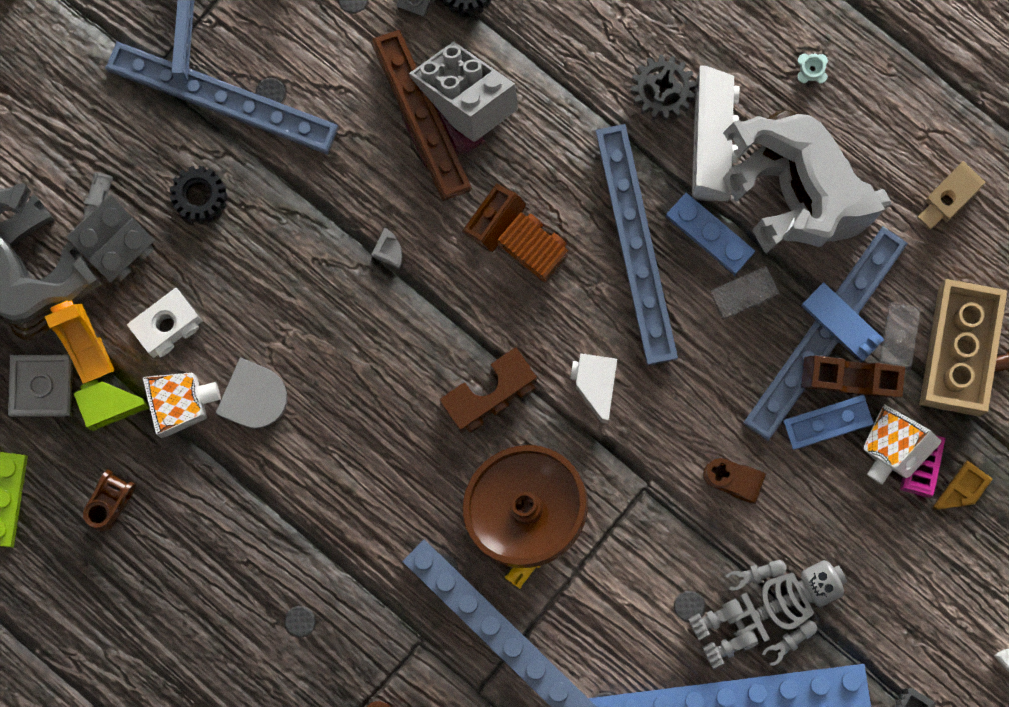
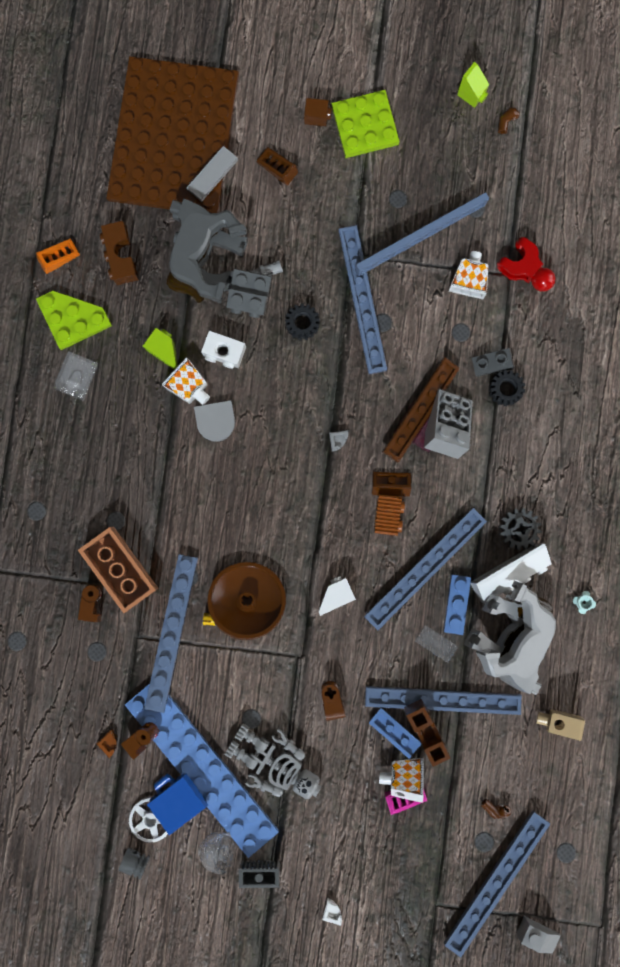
camera: 55 degrees right, 5 degrees up
(40, 386) = (151, 308): light grey tile -> none
(66, 544) = (75, 376): none -> clear piece
(79, 339) = (182, 316): light orange arch -> none
(109, 499) = (114, 382): reddish brown piece -> none
(369, 655) = (118, 569): none -> nougat brick
(469, 409) = (279, 537): reddish brown arch -> none
(842, 322) = (453, 707): medium blue hinge -> none
(900, 335) = (467, 741): clear plate -> none
(963, 347) = (482, 782): tan brick -> none
(964, 488) = (406, 827): pearl gold tile -> none

